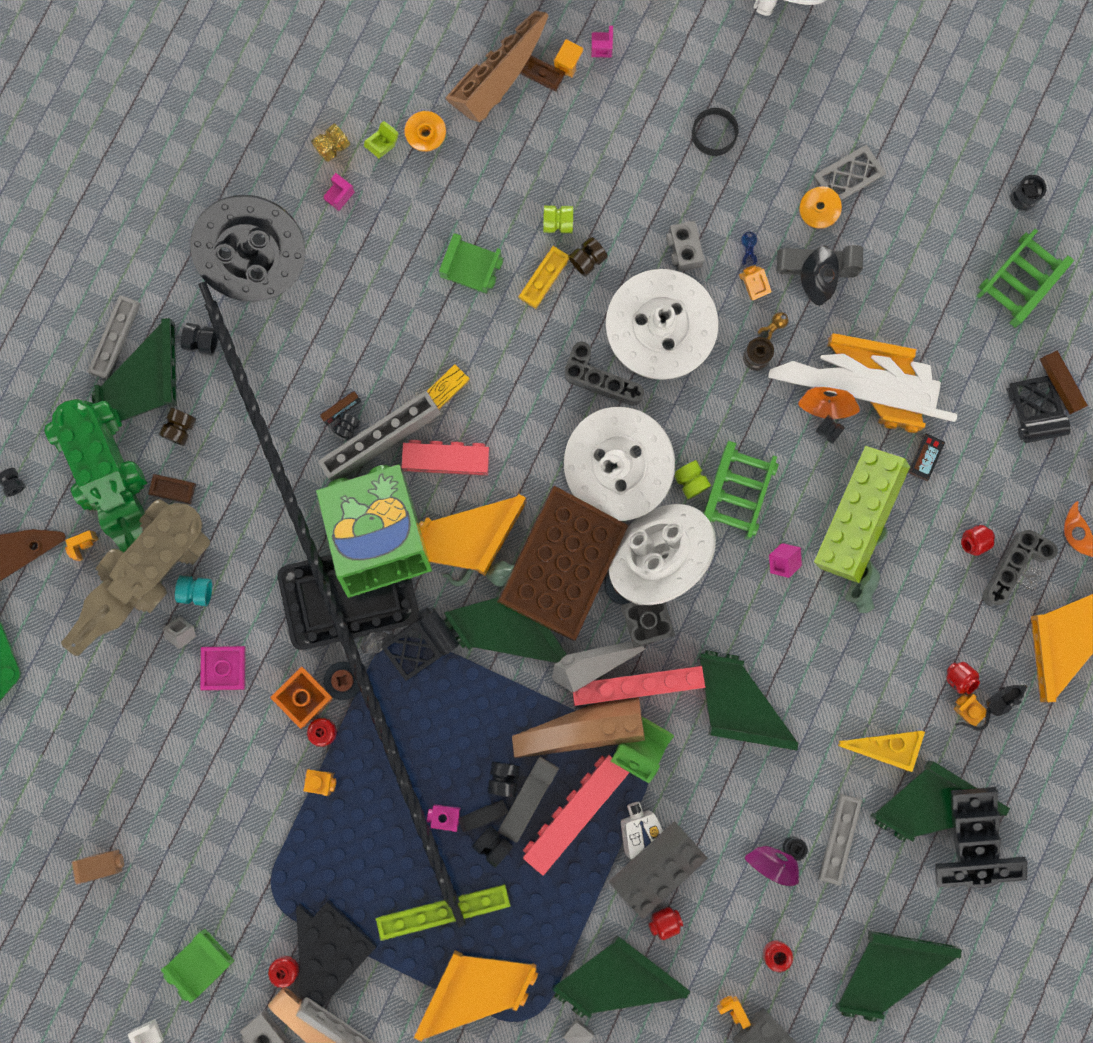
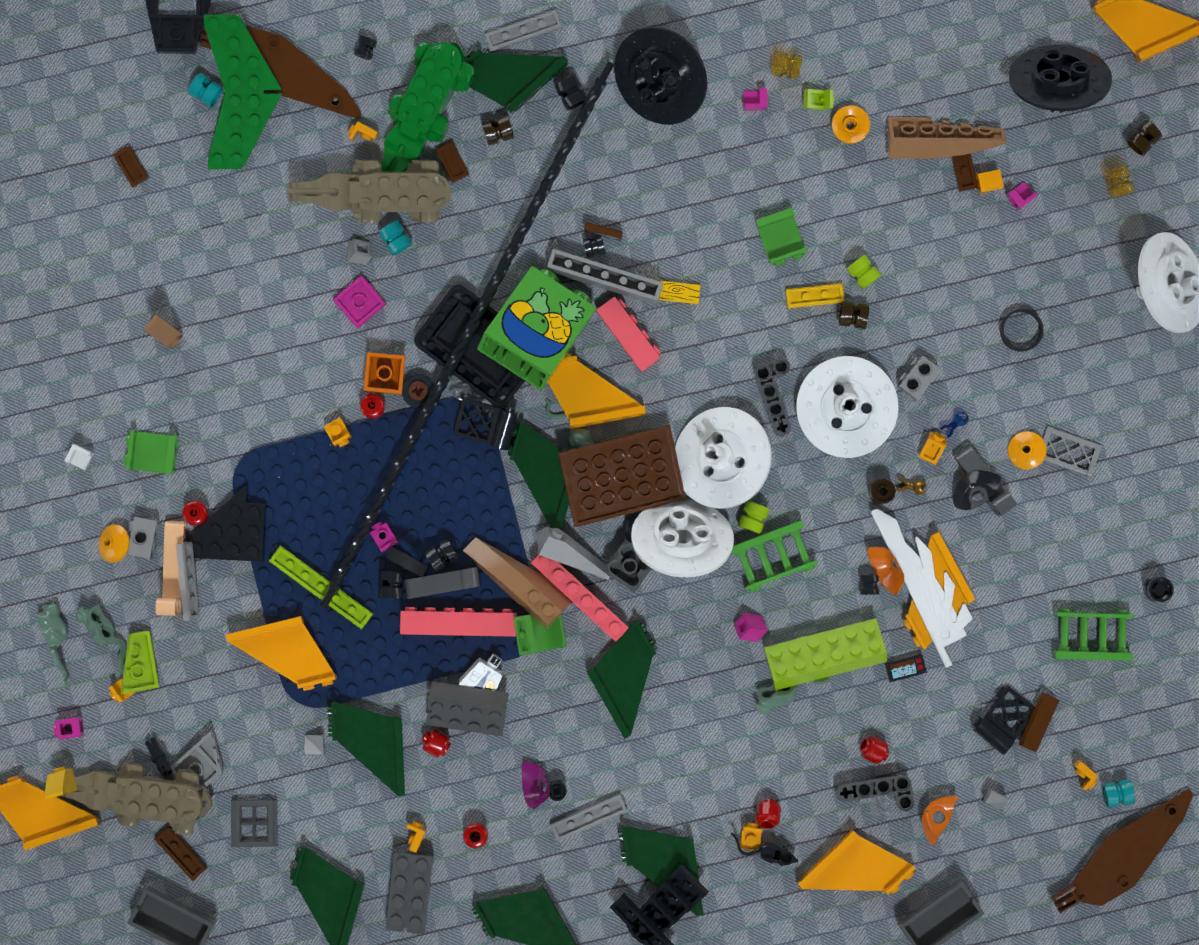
camera: 50 degrees right, 5 degrees up
(894, 749) = (680, 805): yellow wing -> none

